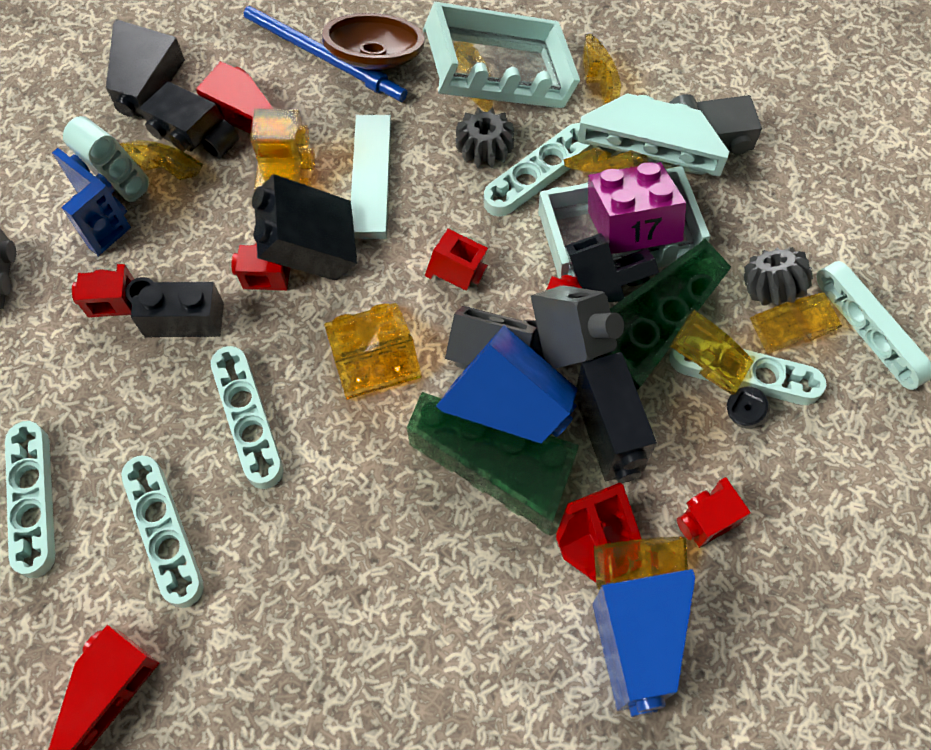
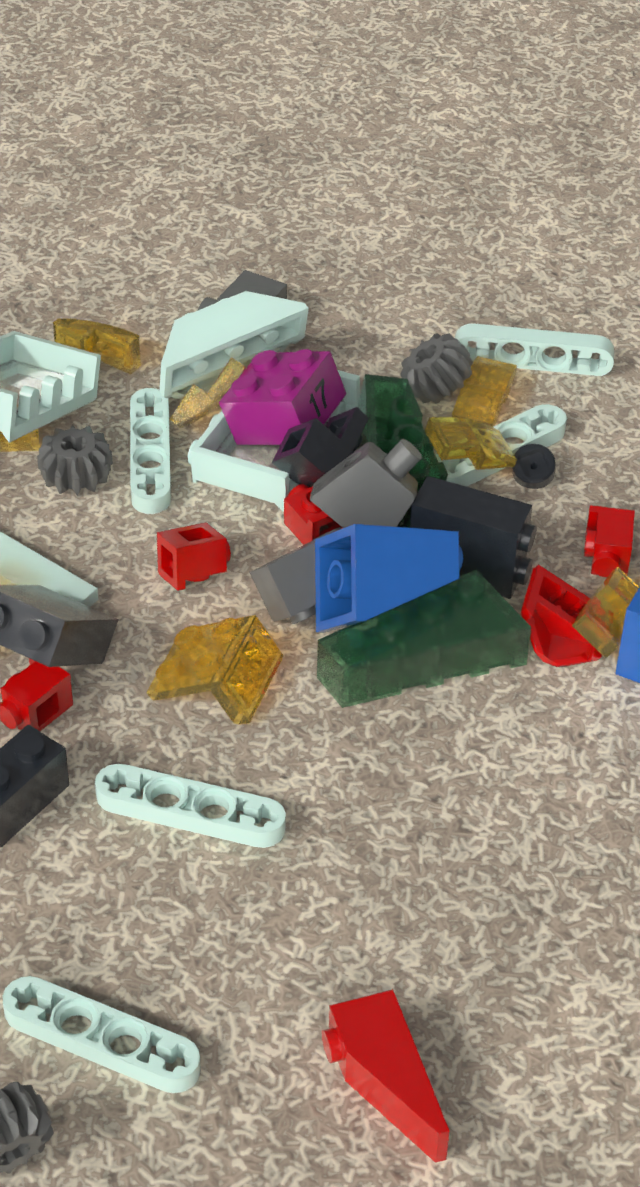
camera: 55 degrees left, 20 degrees down
(156, 532) = (253, 930): light aqua beam -> none

